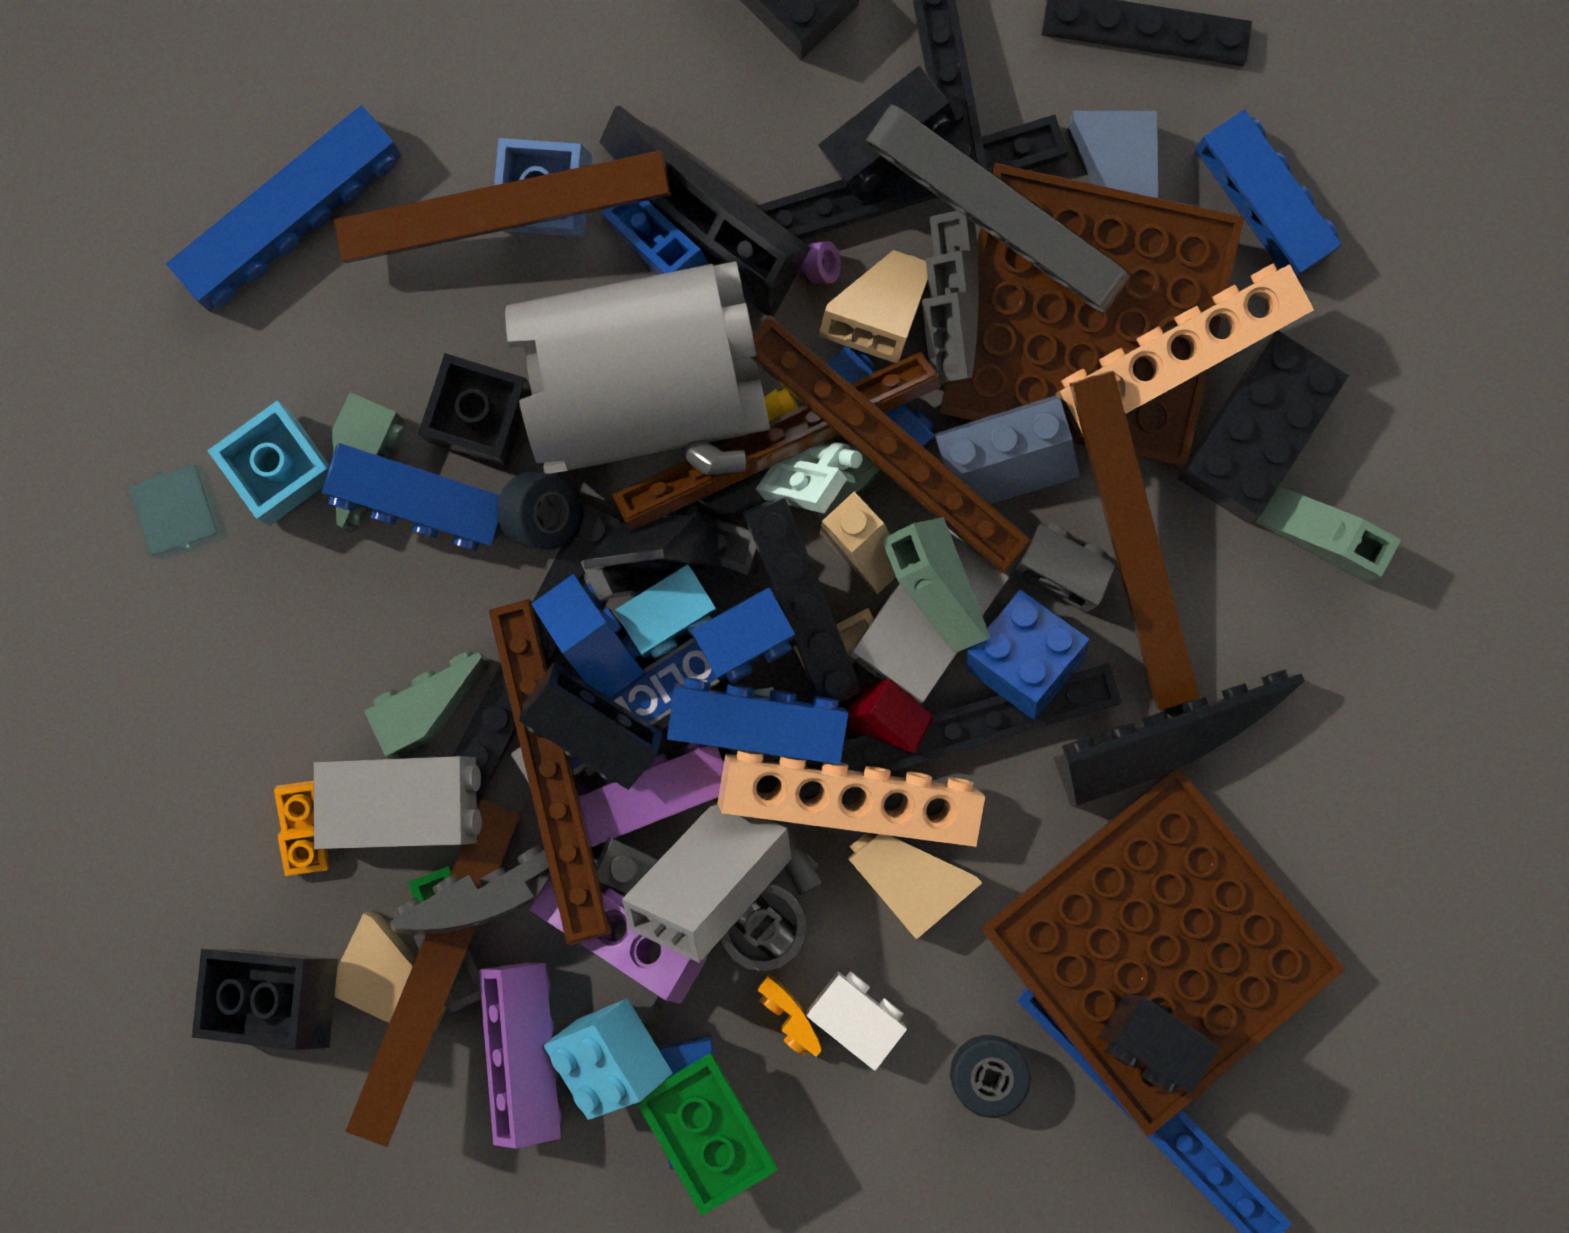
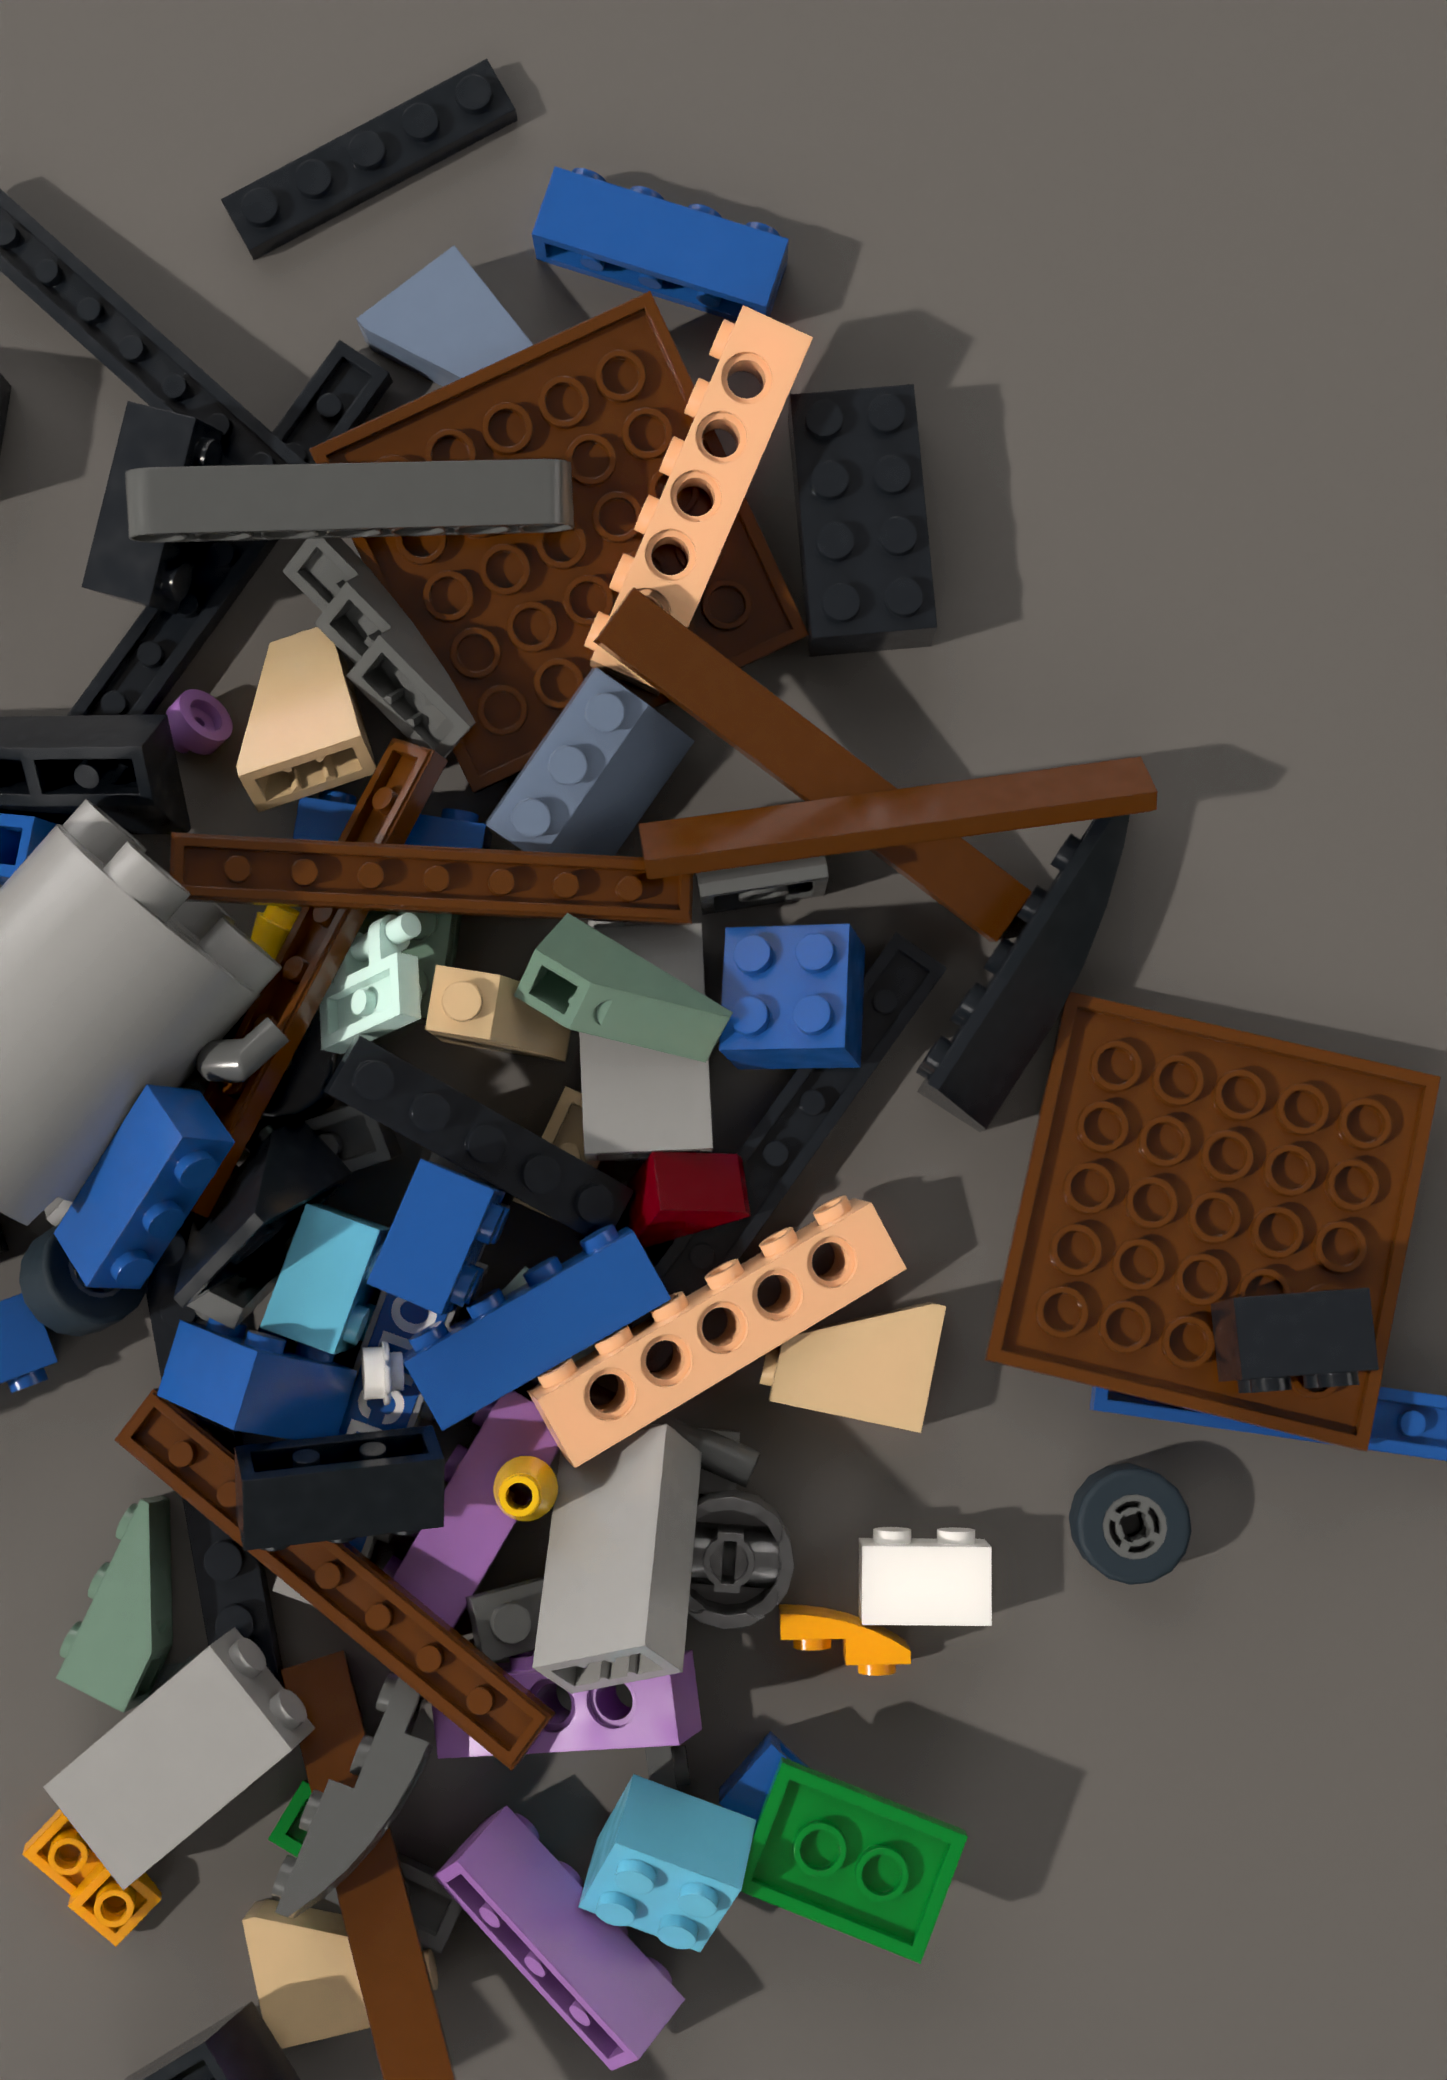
camera: 35 degrees left, 0 degrees up
(610, 490) = (143, 1187): none -> blue brick
(657, 683) = (381, 1372): none -> white plate
(698, 801) = (537, 1477): none -> yellow cone
(1159, 602) = (896, 817): none -> reddish brown tile
(1330, 533) = (1034, 584): sand green slope -> none

